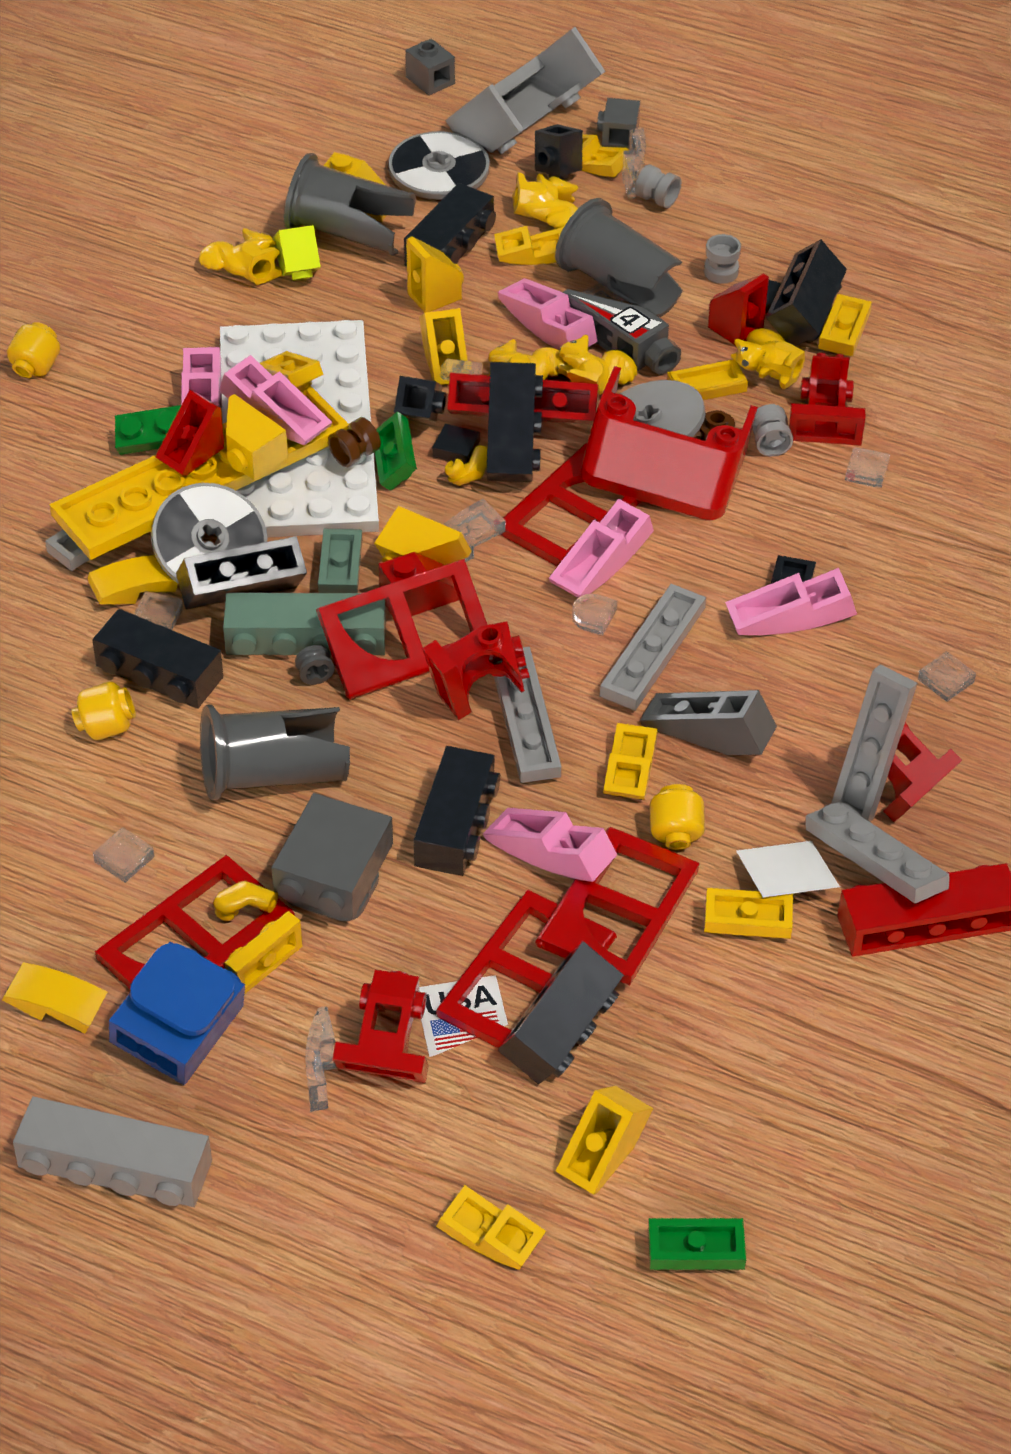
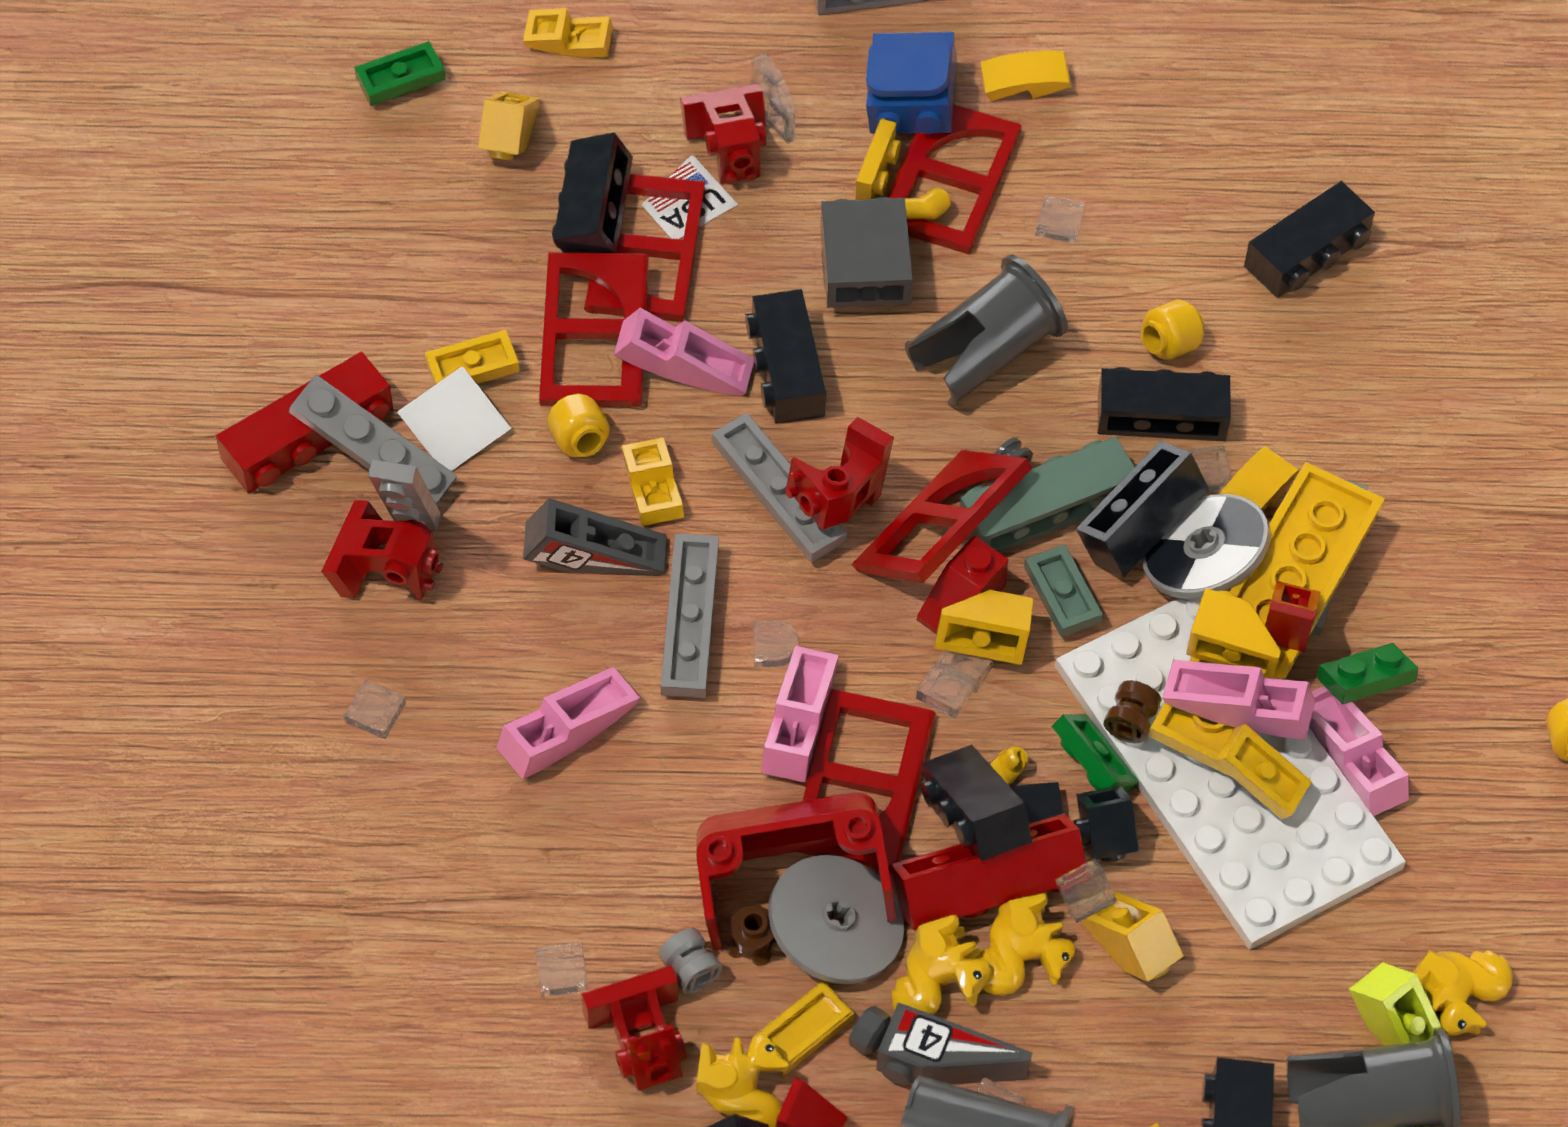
camera: 155 degrees right, 10 degrees up
(431, 276) = (1206, 1025): yellow slope -> none
(547, 313) = (1058, 1048): bright pink slope -> none
(790, 566) = (585, 775): black tile -> none

